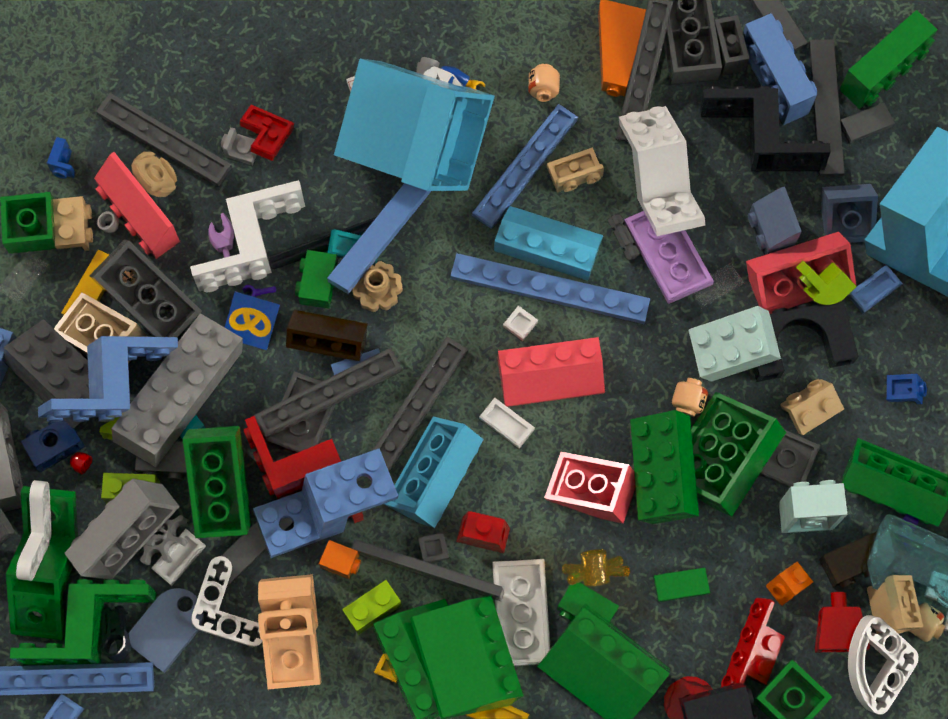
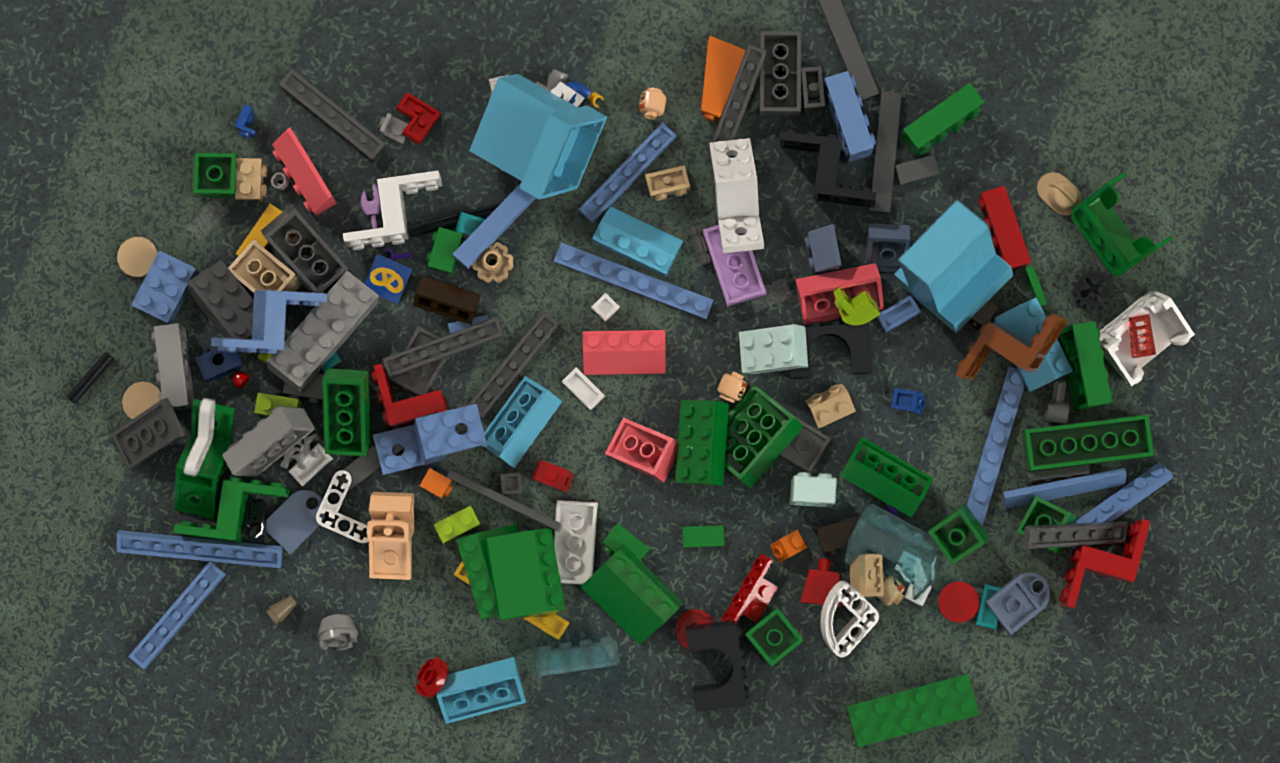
camera: 10 degrees right, 10 degrees up
(154, 174) = (321, 146): tan tile -> none
(595, 568) = (635, 517): clear yellow bar -> none

